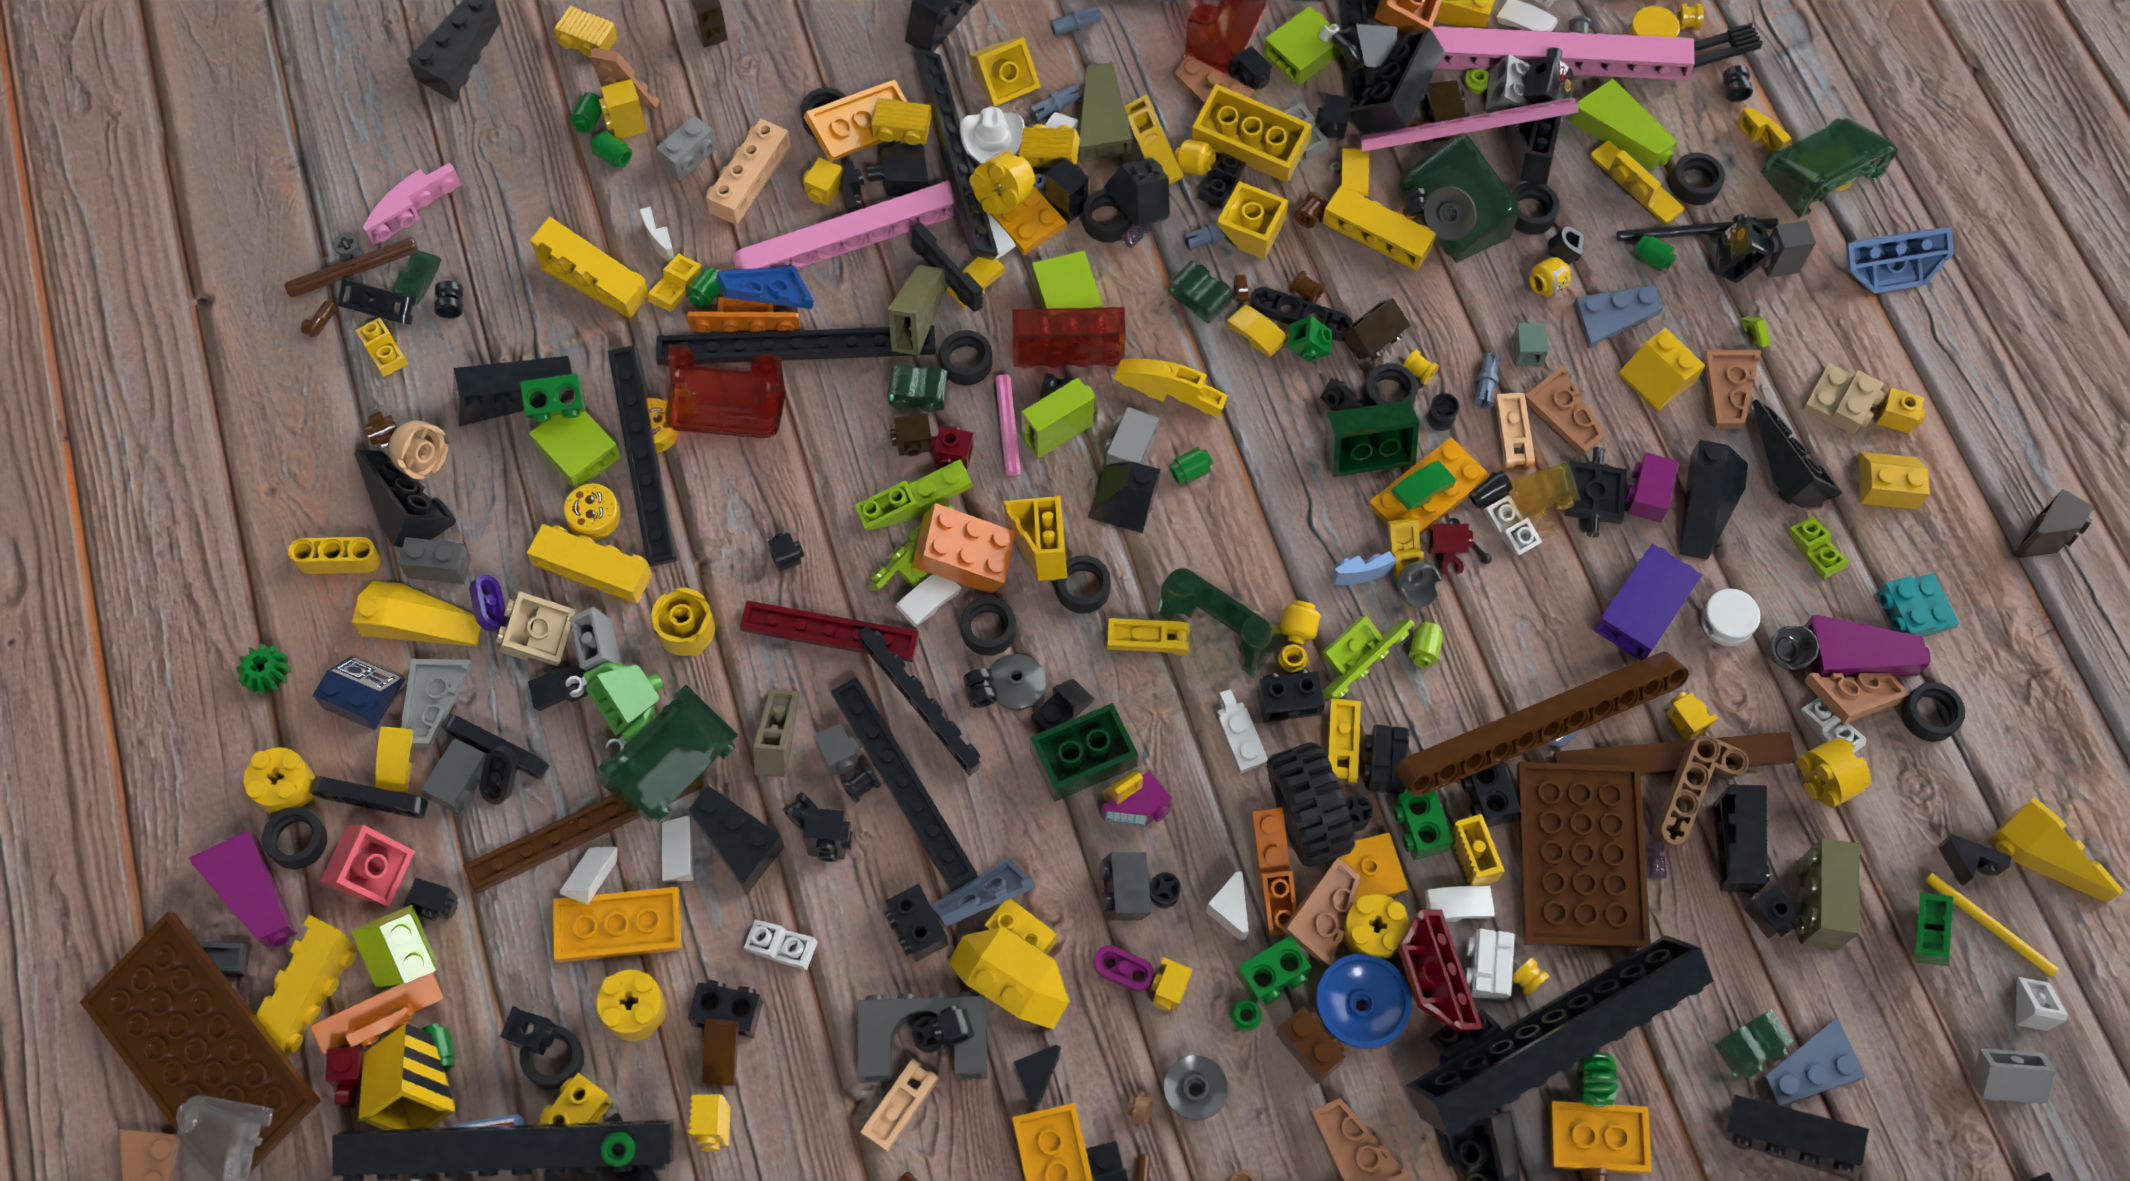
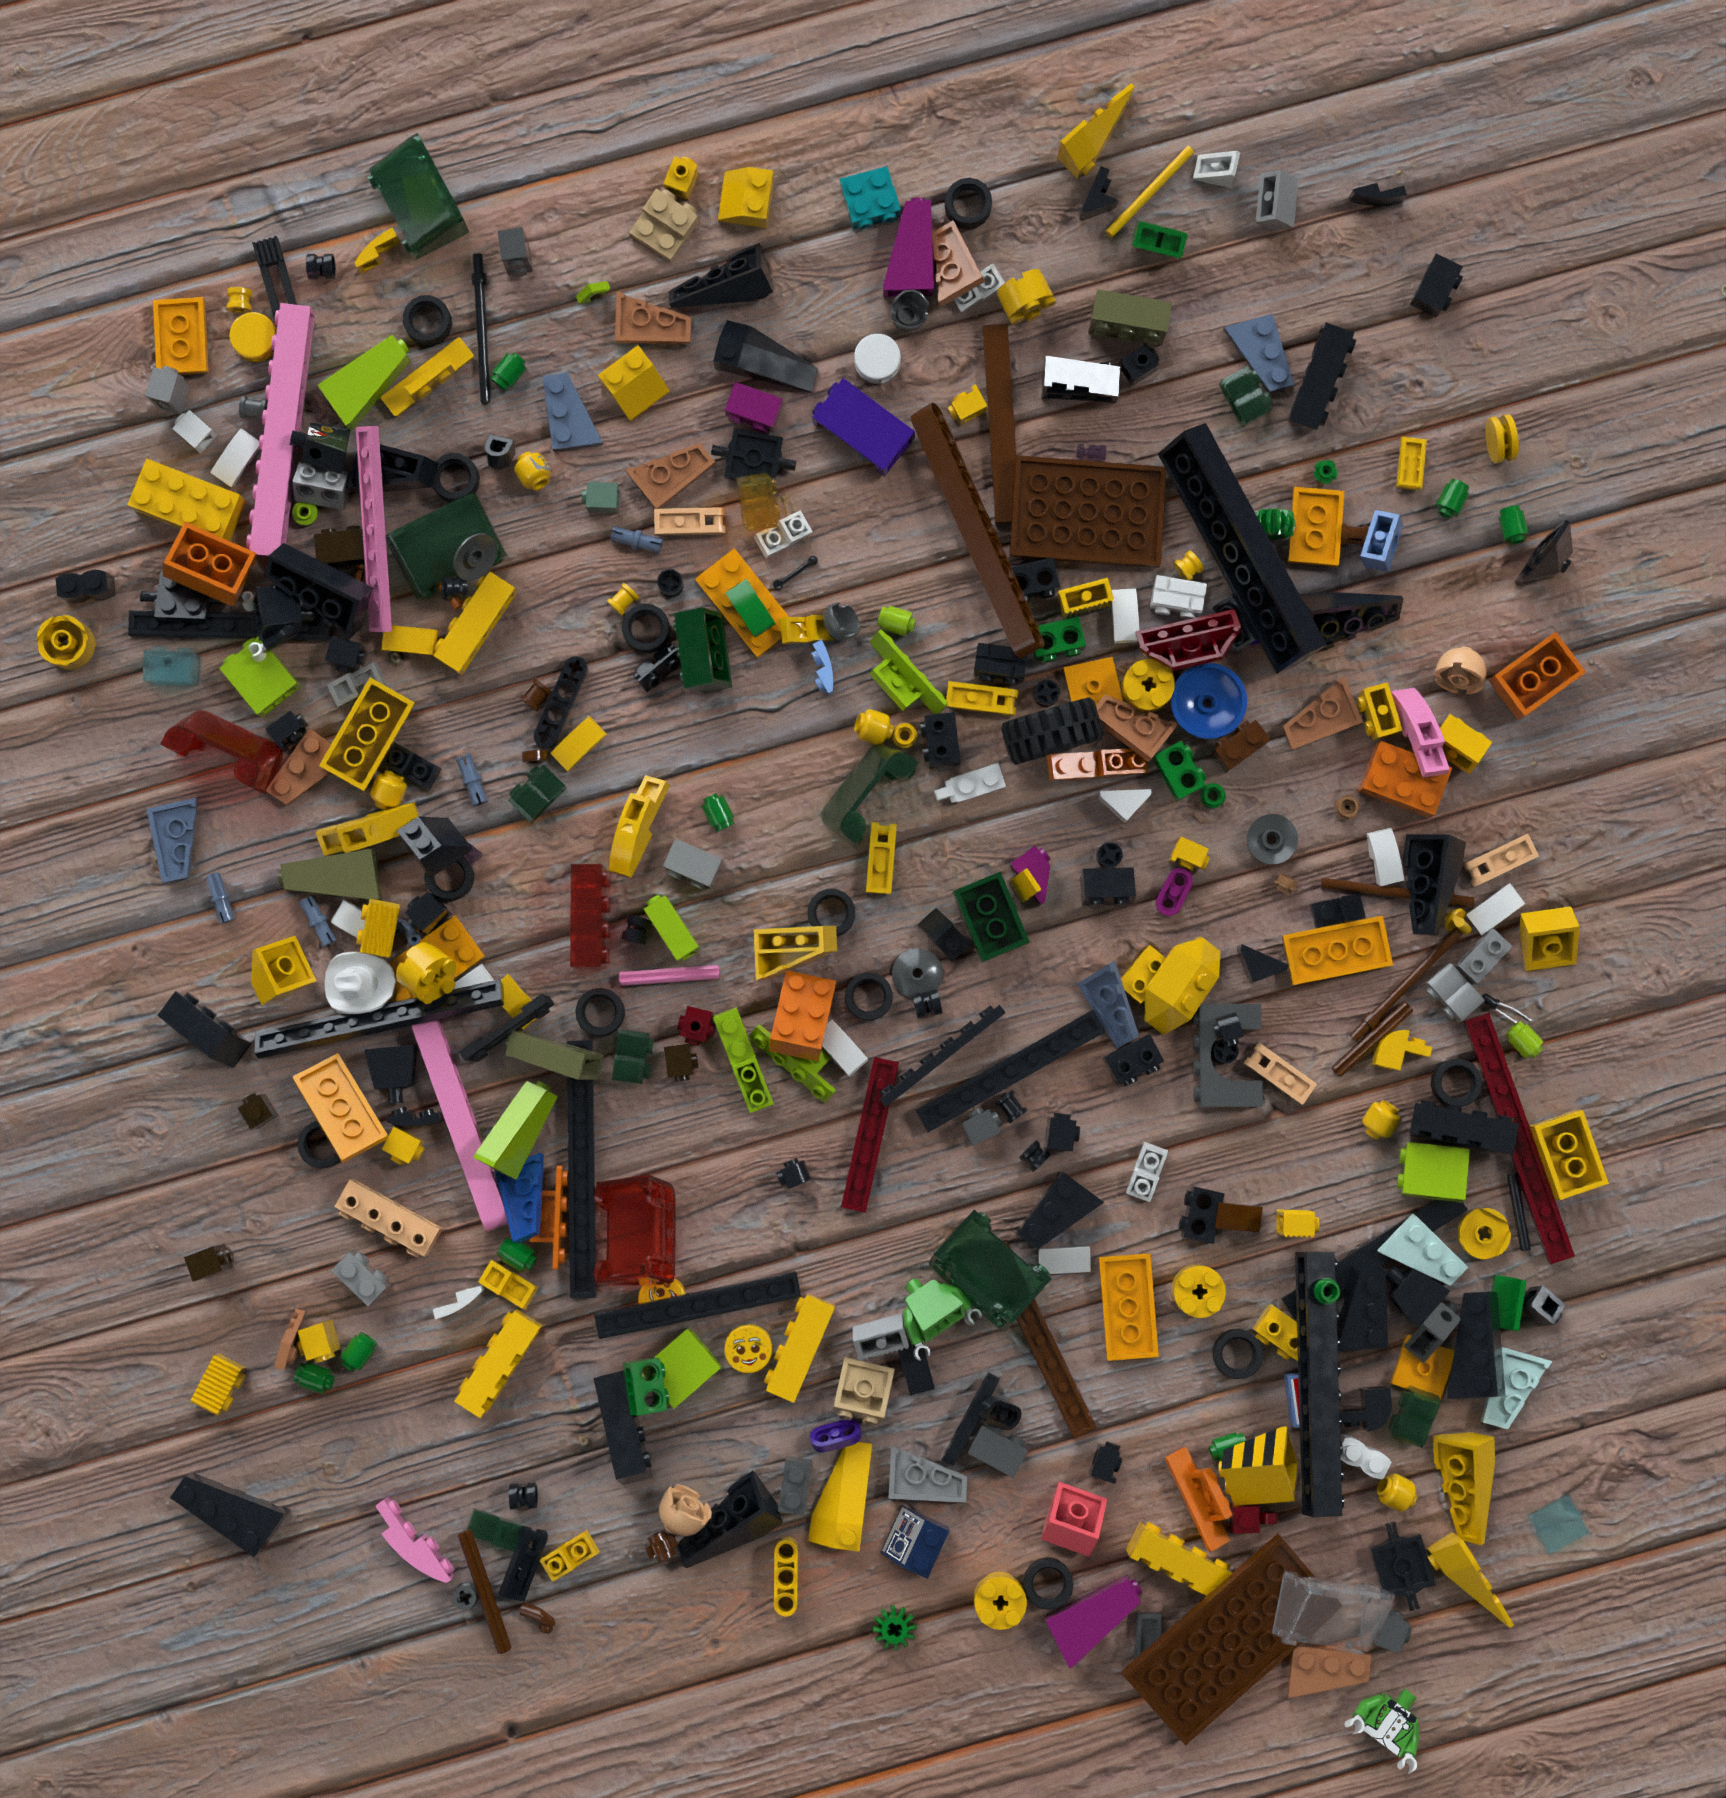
camera: 85 degrees left, 20 degrees up
(369, 797) = (1013, 1523): black beam -> none
(392, 759) = (980, 1505): yellow slope -> none
(395, 948) = (1149, 1486): lime slope -> none
(516, 1027) = (1215, 1376): black brick -> none
(590, 874) = (1086, 1332): white slope -> none
(683, 622) = (848, 1267): yellow brick -> none
(776, 733) = (962, 1178): dark tan slope -> none
(835, 275) = (517, 1130): none -> lime slope
(860, 55) = (257, 1110): none -> dark brown brick
(901, 121) = (350, 1069): yellow brick -> none
(1066, 282) = (533, 916): lime brick -> none
(1125, 495) = (745, 873): black slope -> none
(1253, 219) = (464, 740): yellow slope -> none
(1310, 210) = (450, 685): reddish brown bush -> none
(1310, 339) = (594, 696): green brick -> none
(1376, 329) = (585, 635): dark brown brick -> none
(1449, 541) = (801, 591): dark red brick -> none
(1491, 489) = (748, 548): black cone -> none
(1665, 1154) = (1324, 478): none -> green plate
(1691, 794) = (1039, 413): medium nougat beam -> none
(1742, 248) = (511, 291): black torso -> none
(1816, 547) = (811, 272): lime slope -> none
(1899, 258) = (523, 151): medium blue wedge -> none
(2056, 526) = (802, 68): dark brown slope -> none

